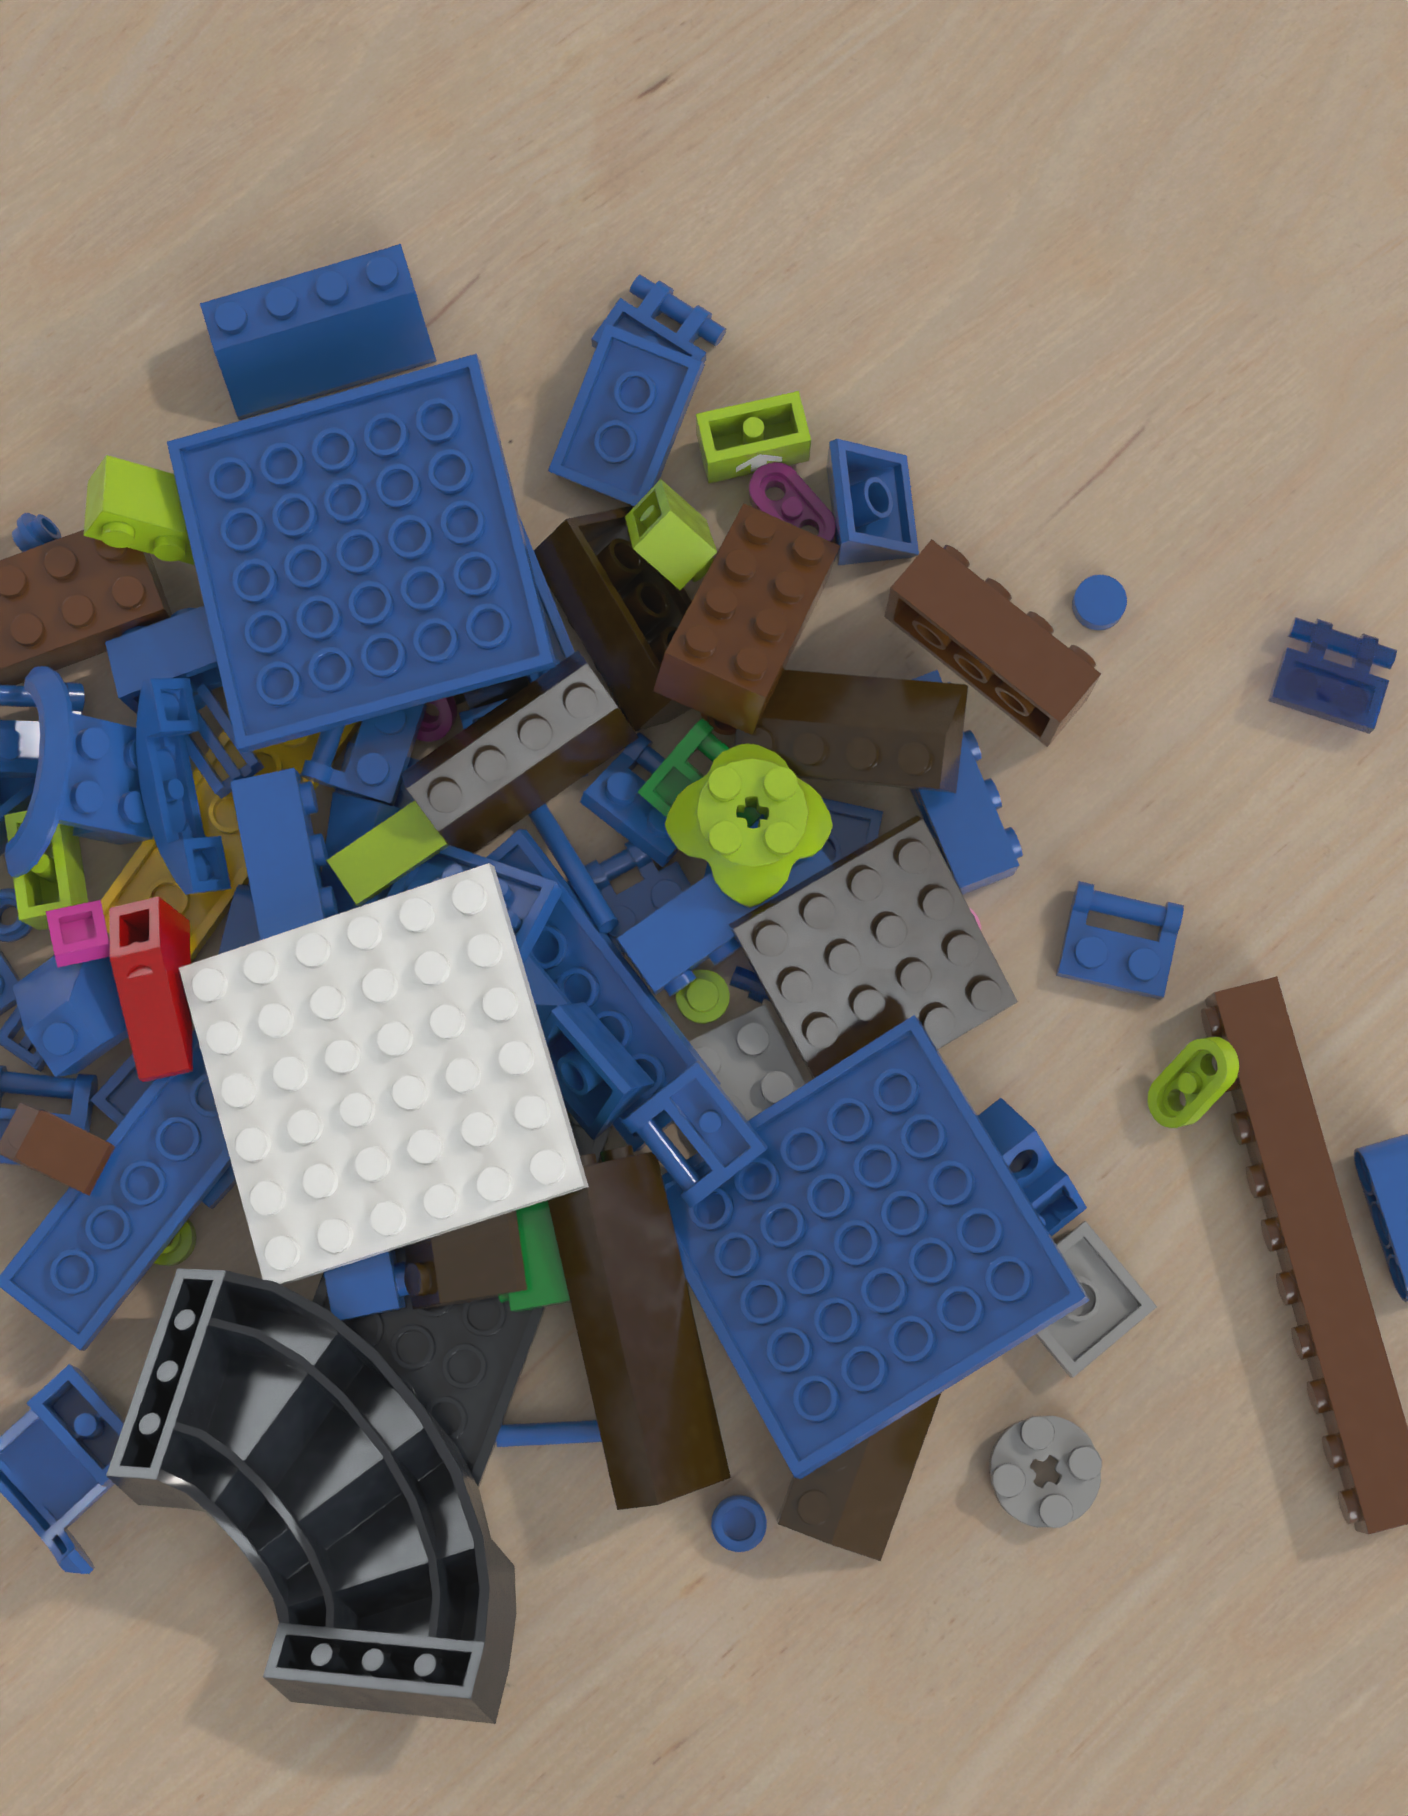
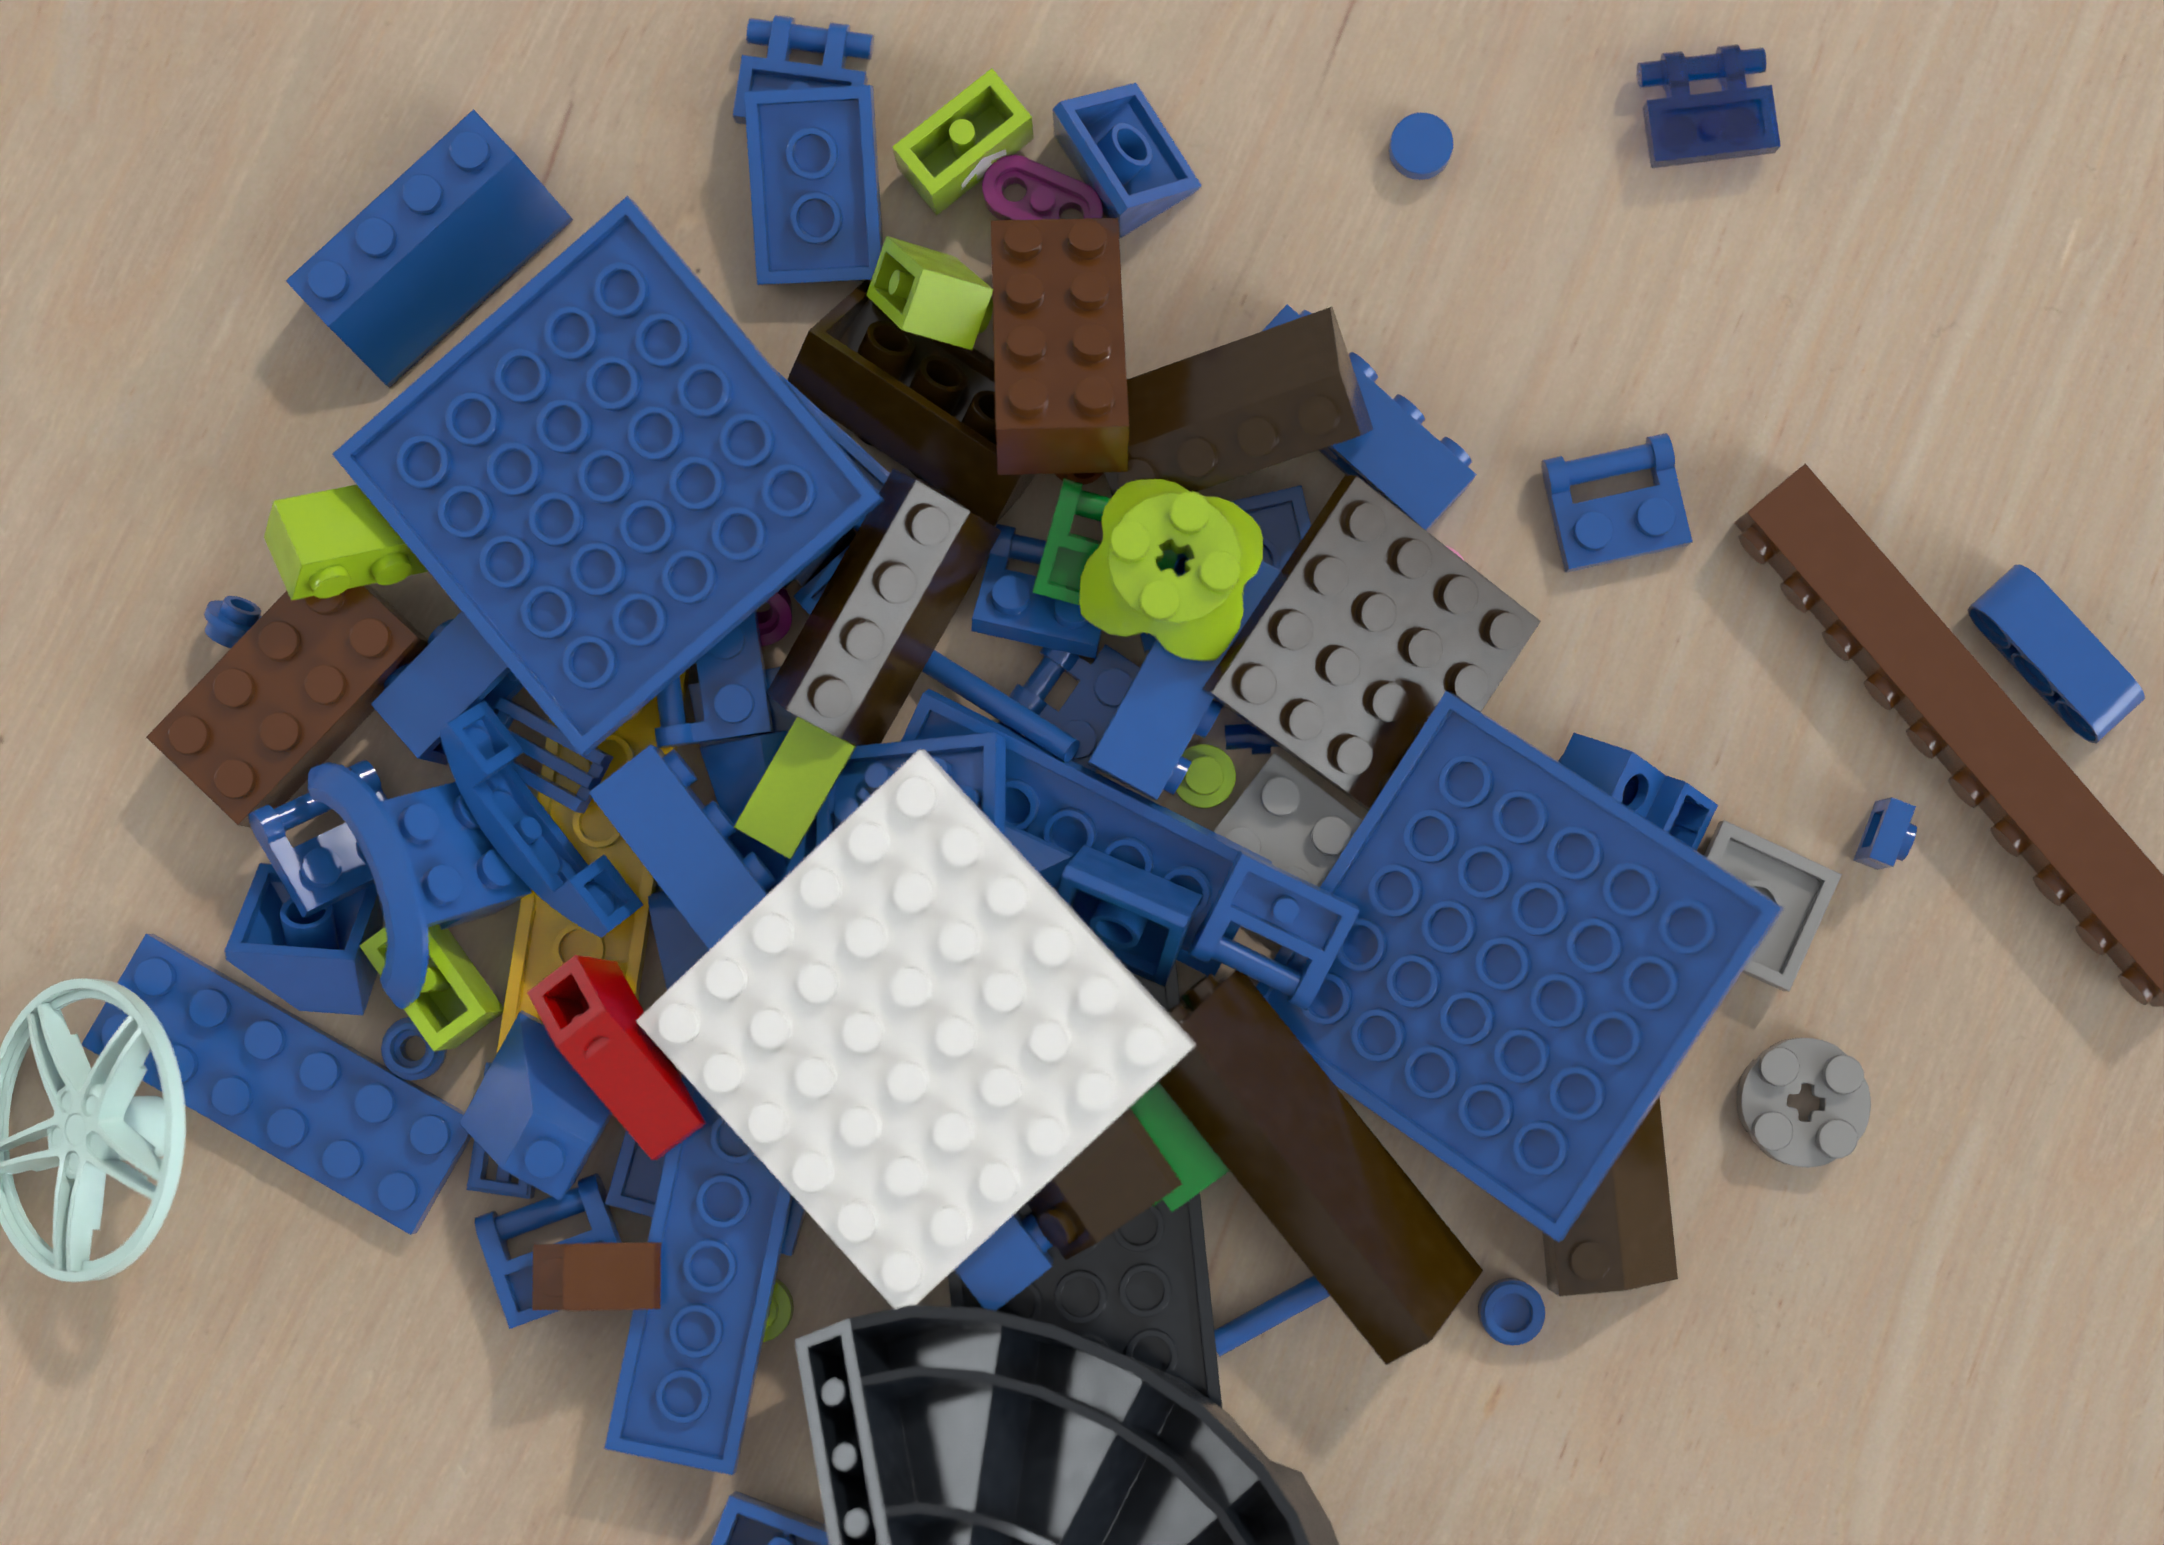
camera: 20 degrees left, 5 degrees up
(78, 933) = (507, 1035): dark pink plate -> none
(991, 641) = (1332, 245): reddish brown brick -> none
(1194, 1077) = (1770, 614): lime plate -> none
(1208, 1294) = (1887, 834): none -> blue plate

